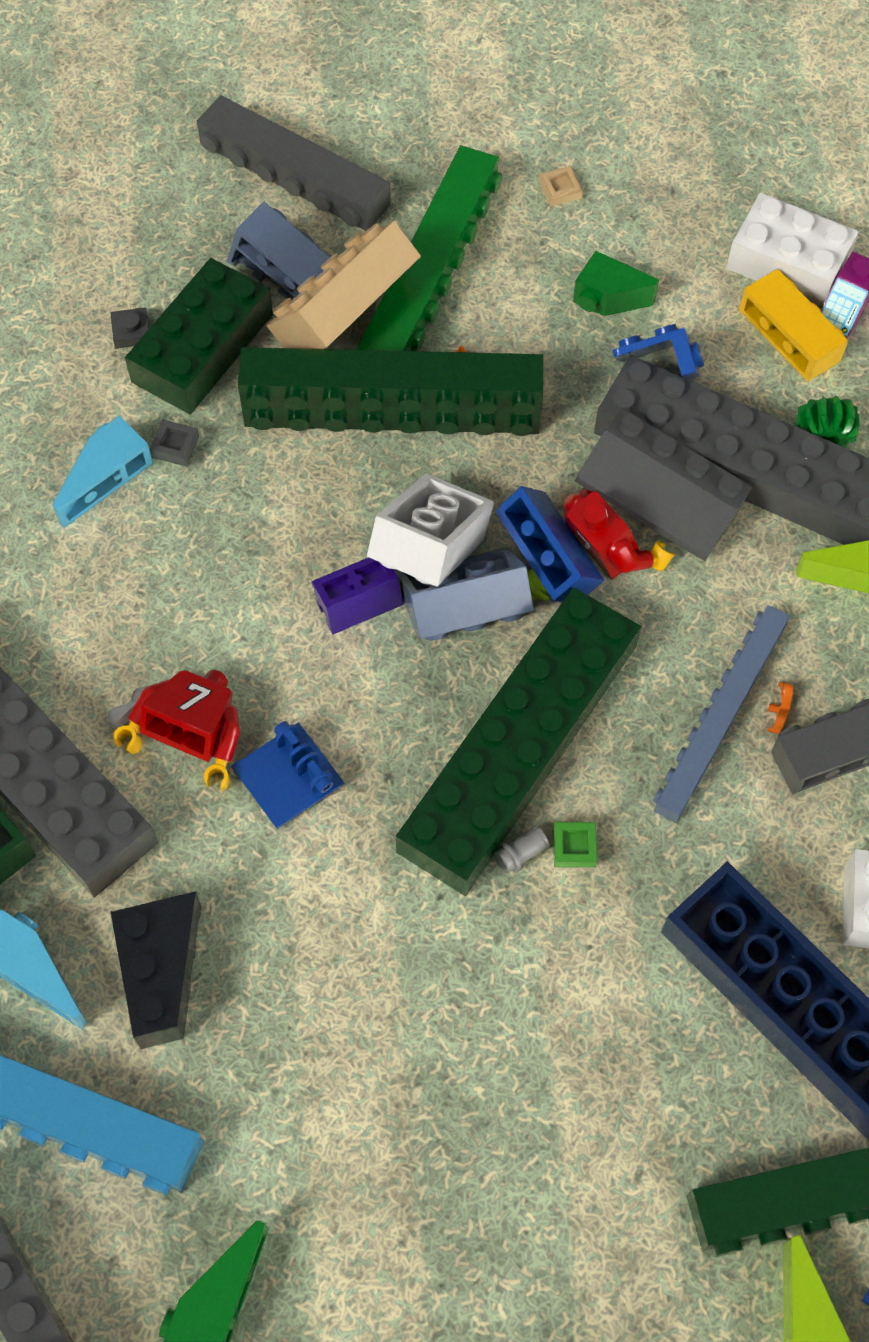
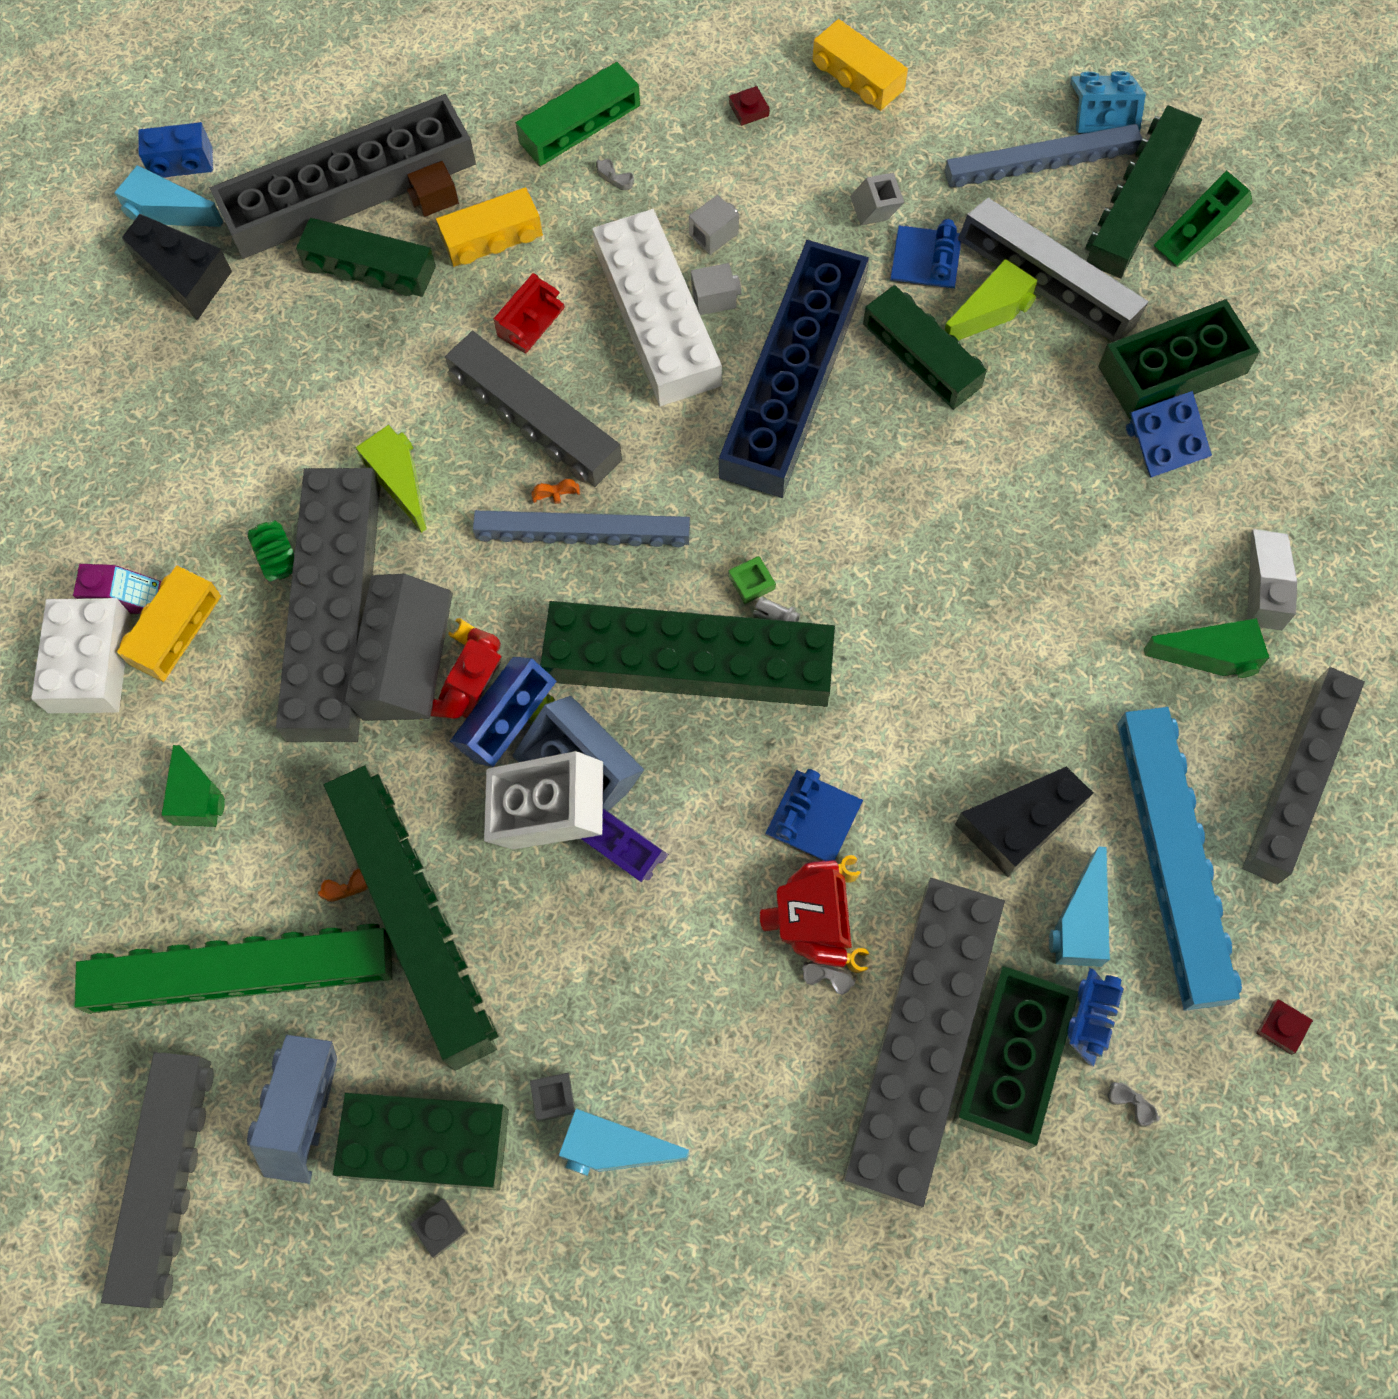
camera: 115 degrees left, 5 degrees up
(344, 288) = (324, 1007): tan brick -> none
(560, 186) = (76, 901): tan tile -> none
(687, 353) = (252, 708): blue bracket -> none

